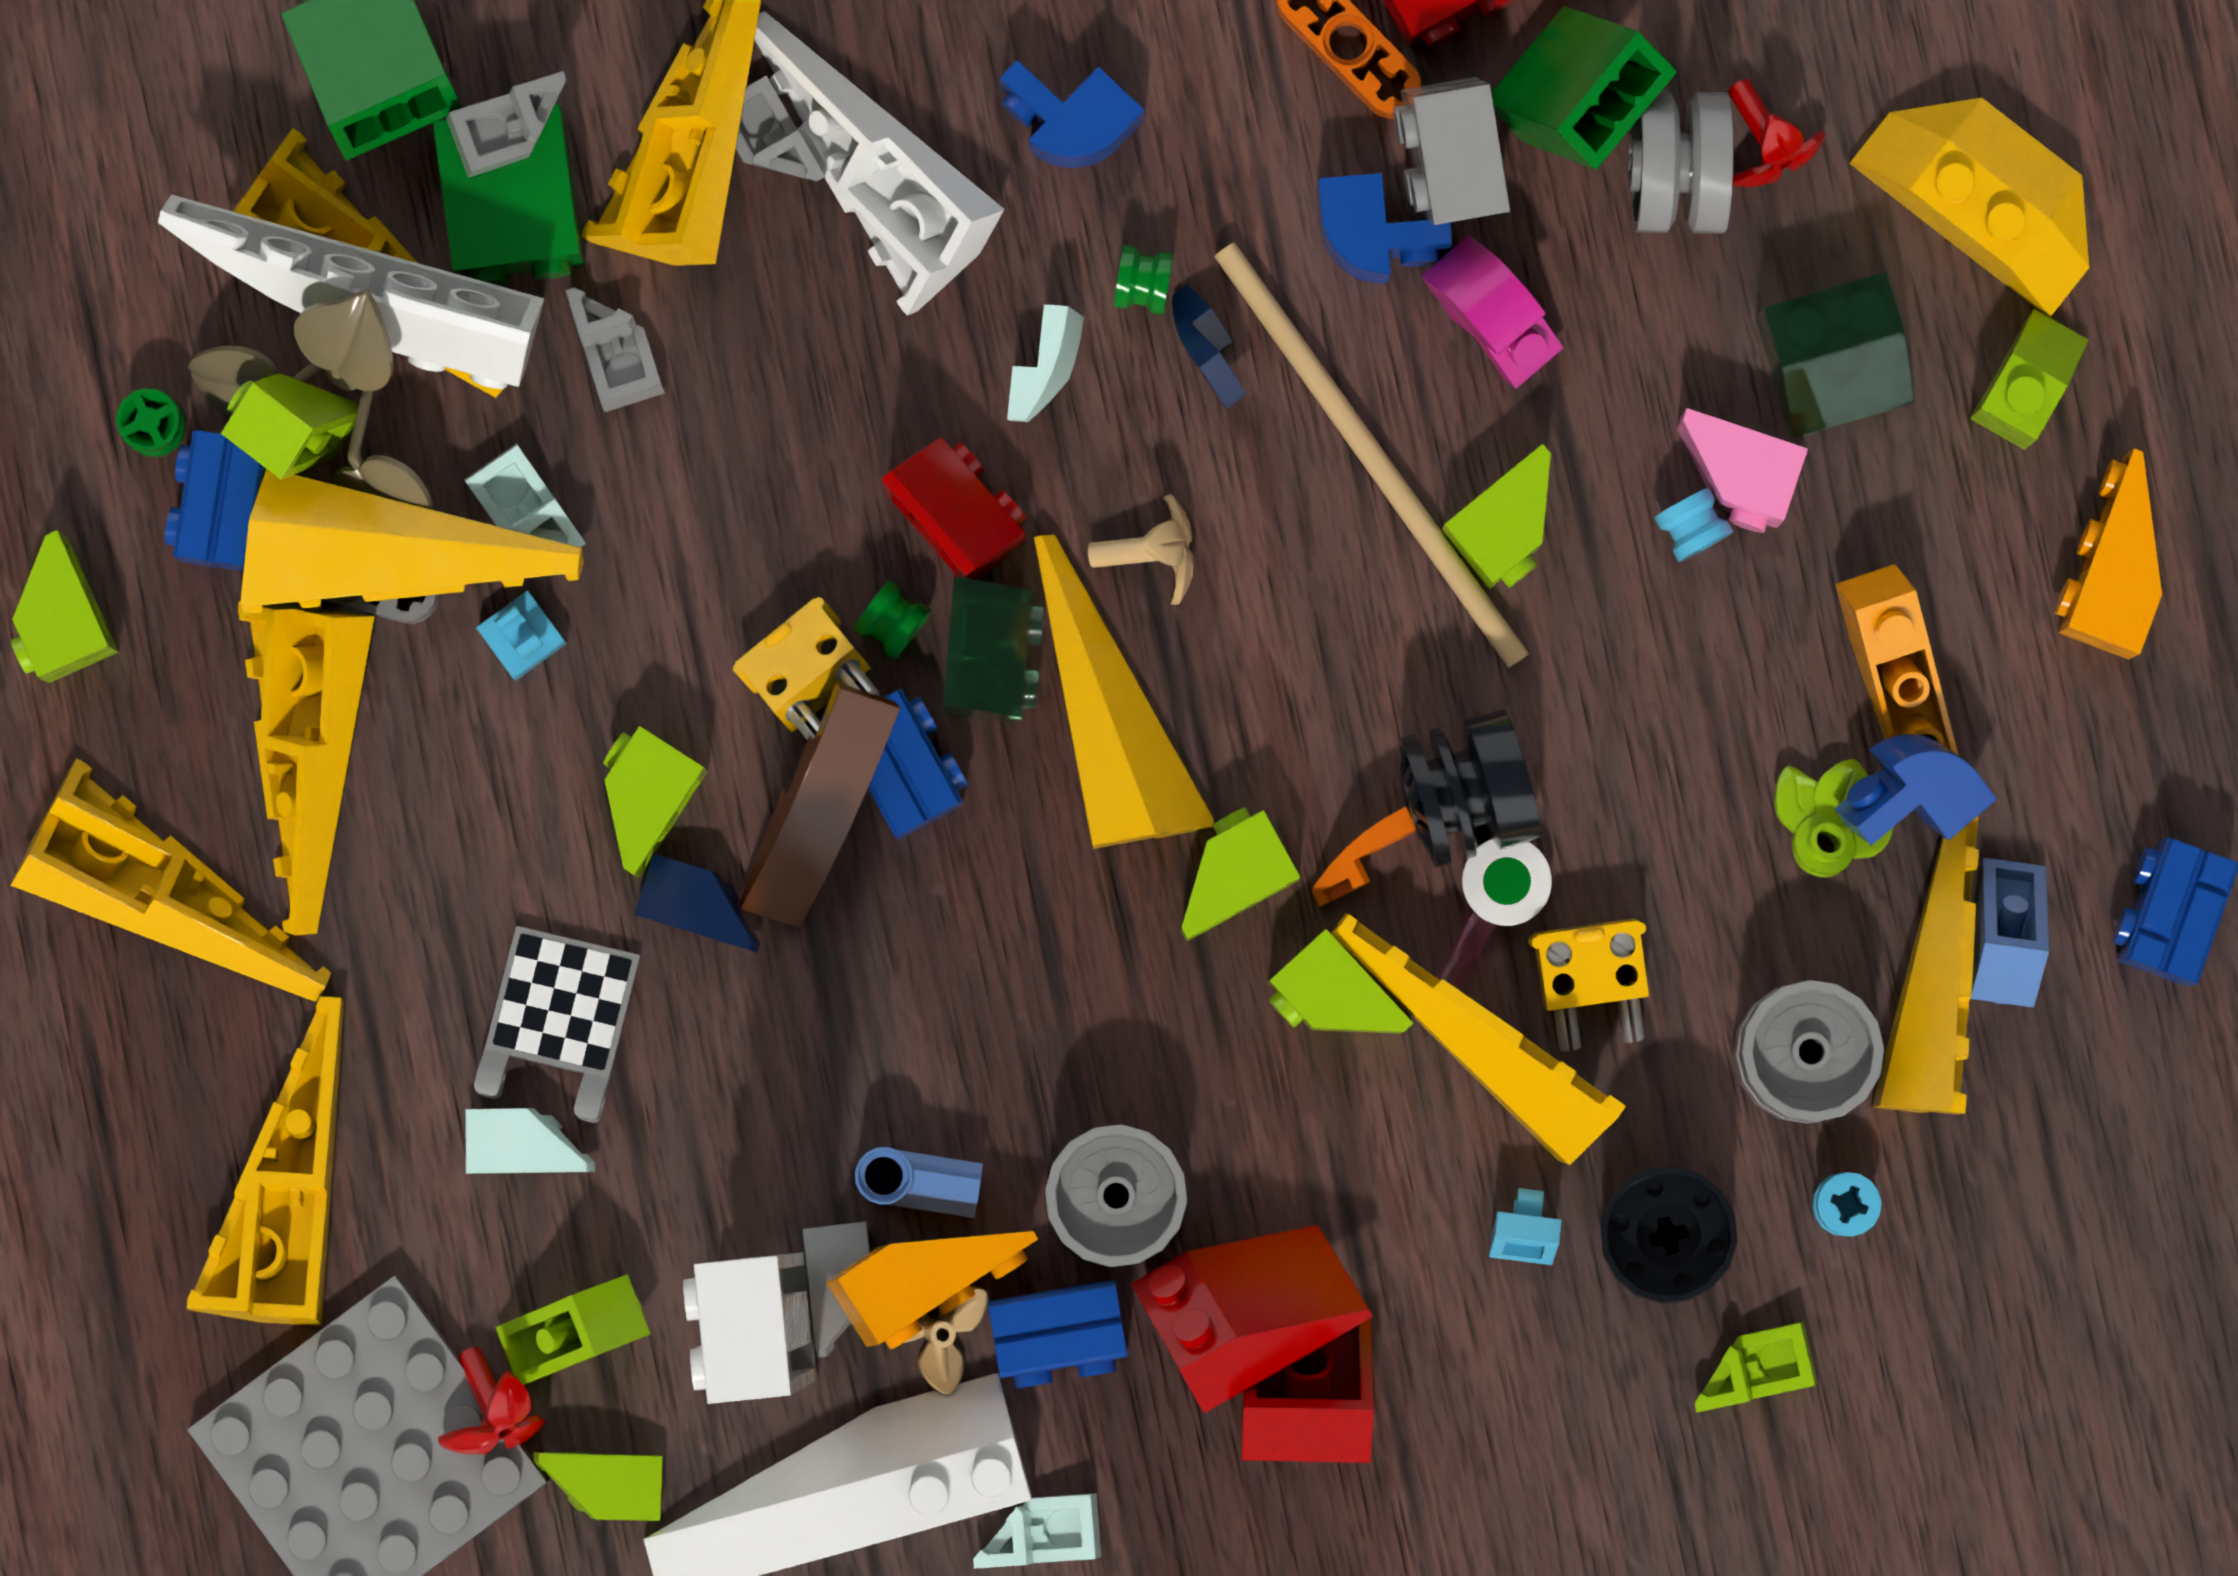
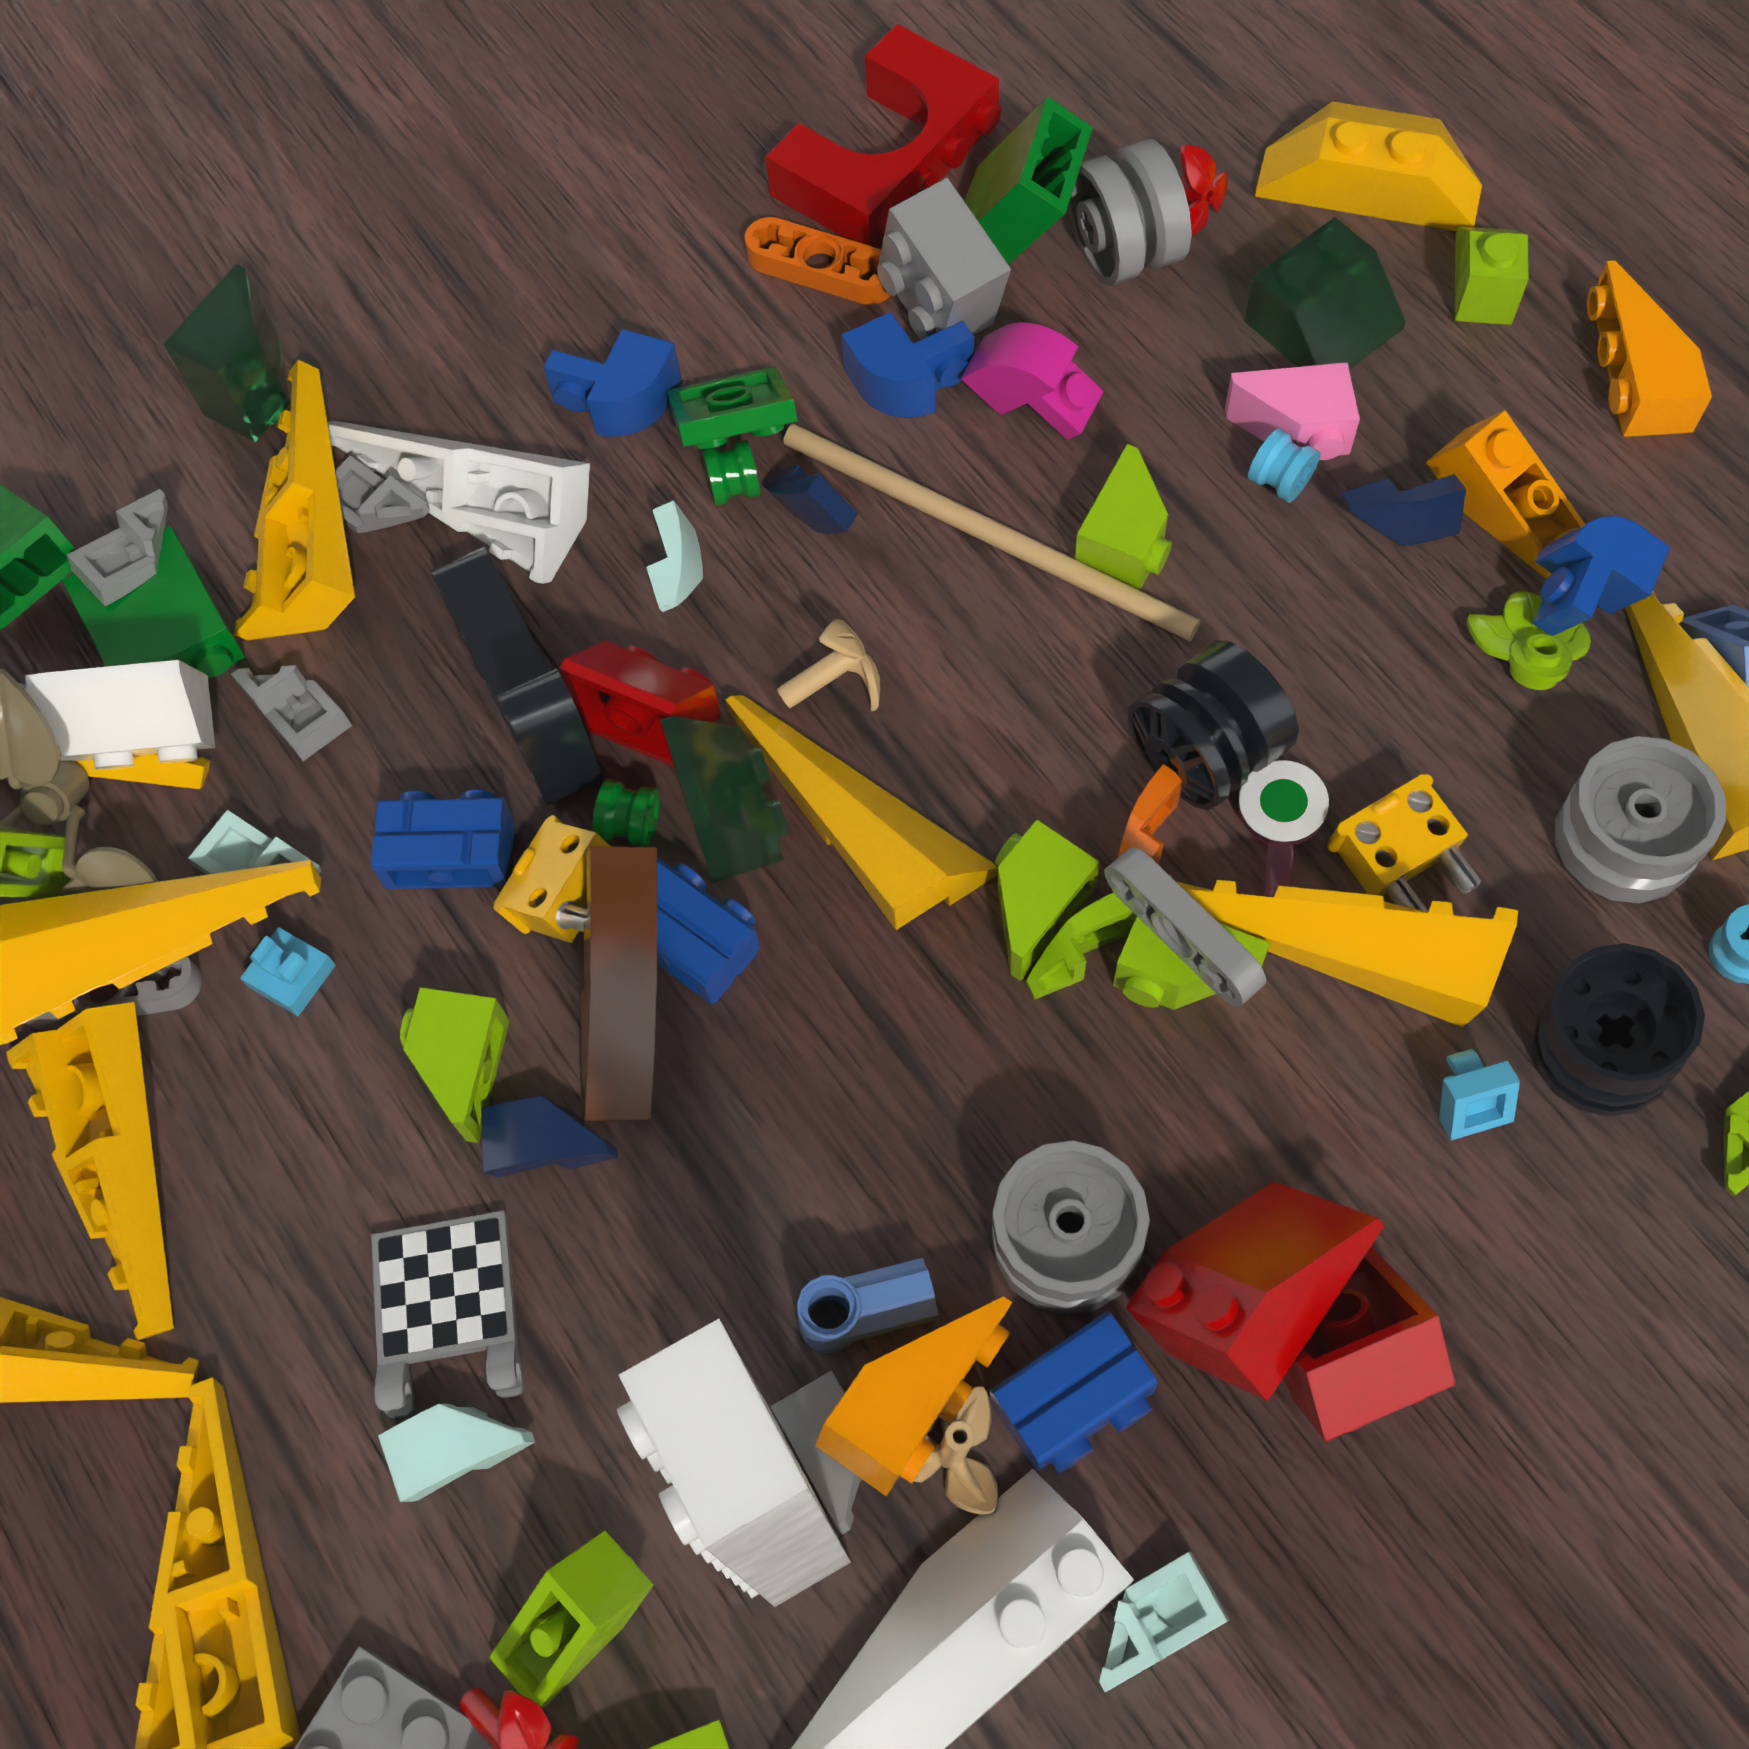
camera: 15 degrees left, 20 degrees down
(711, 571) = (443, 841): none -> blue brick
(842, 418) = (524, 689): none -> black beam
(1173, 207) = (732, 406): none -> green plate
(1229, 944) = (1088, 929): none -> lime slope
(1338, 982) = (1185, 927): none -> light grey beam
(1790, 641) = (1410, 515): none -> dark blue slope

